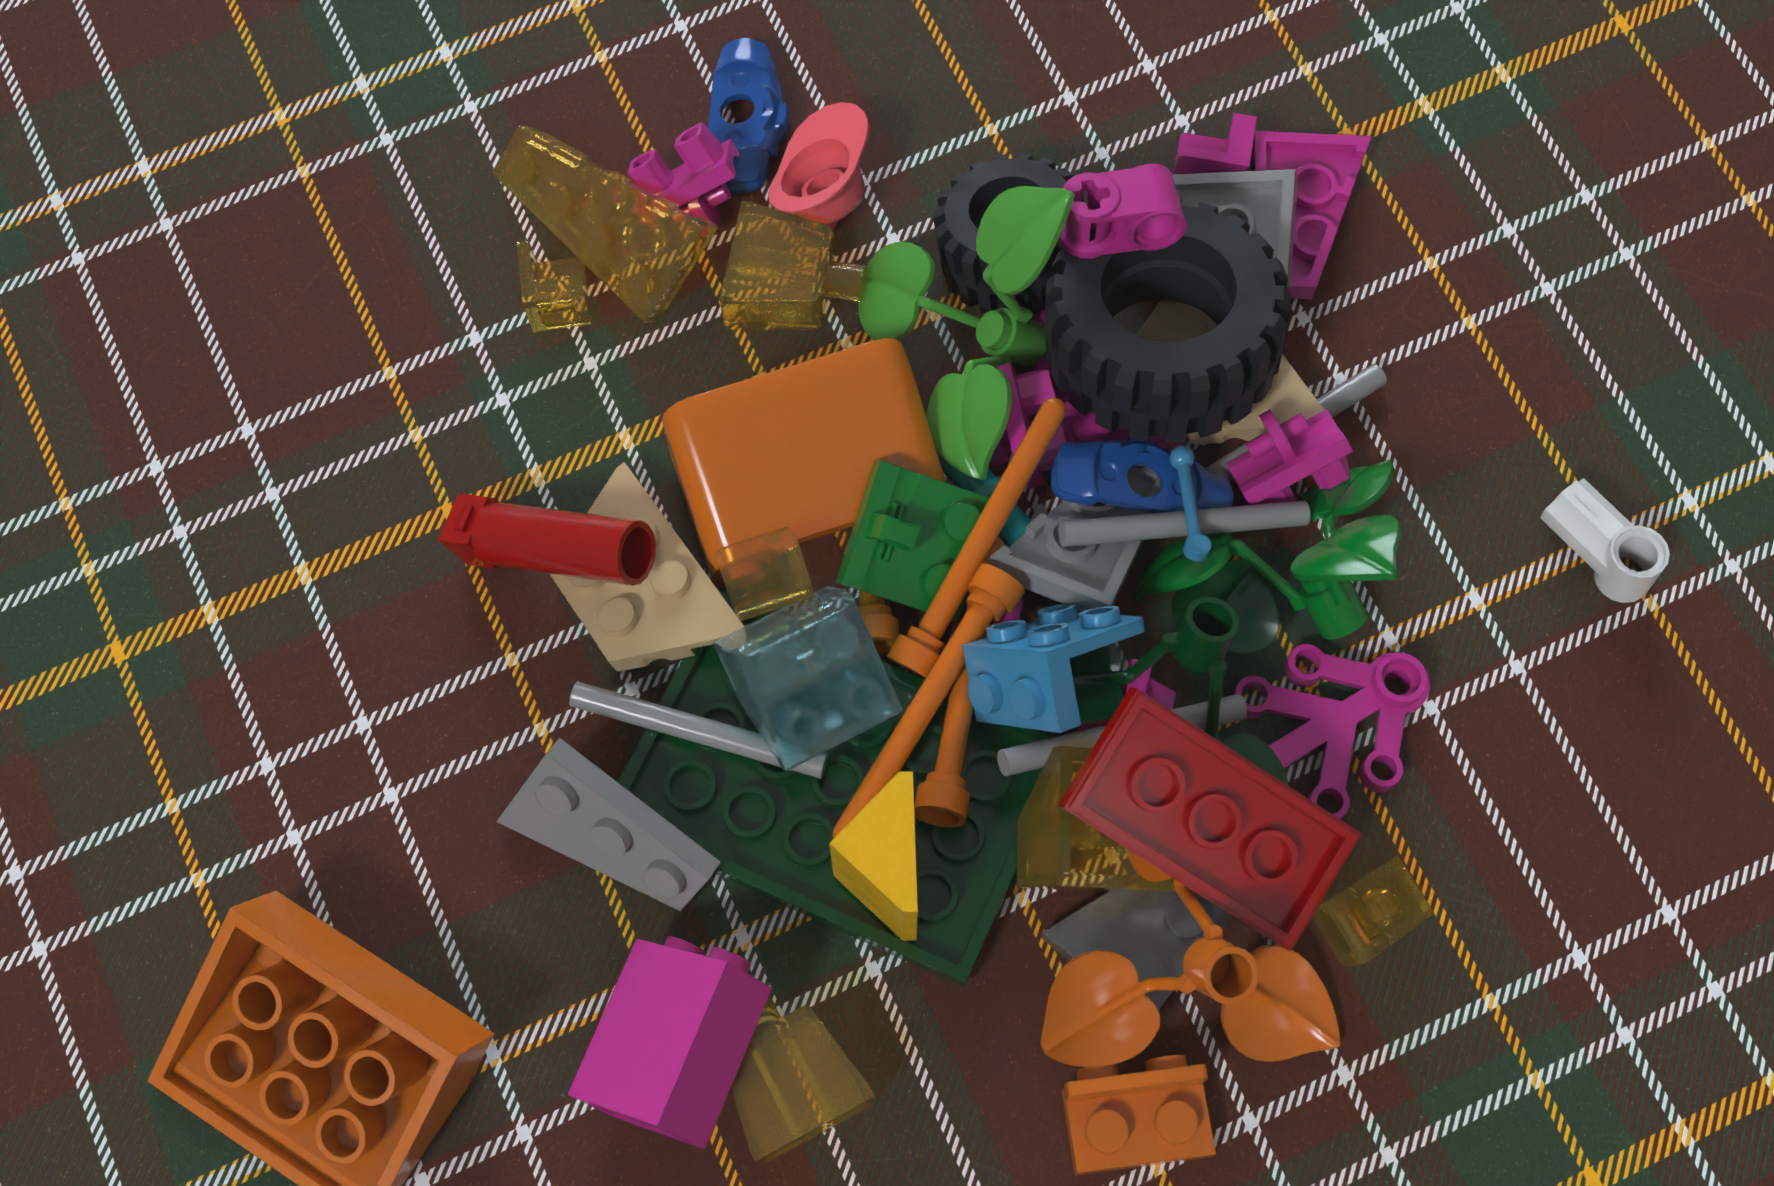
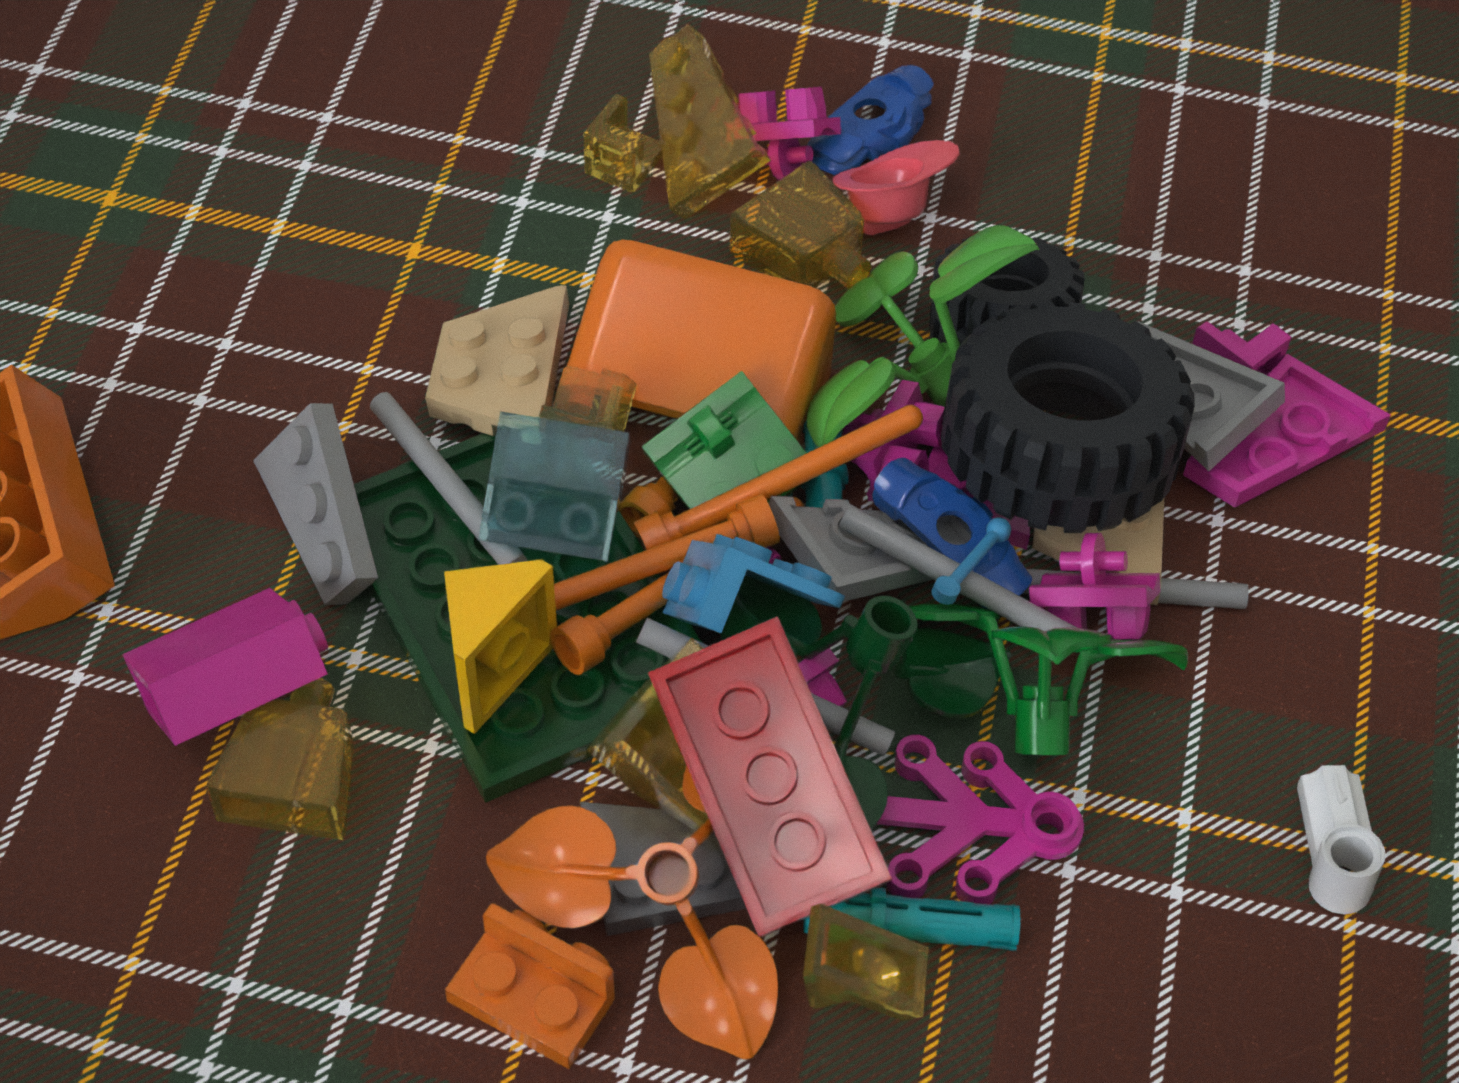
camera: 35 degrees right, 15 degrees down
(549, 540) = (455, 289): red piece -> none
(1126, 208) = (1081, 297): dark pink piece -> none
(1396, 820) = (936, 919): none -> teal pin

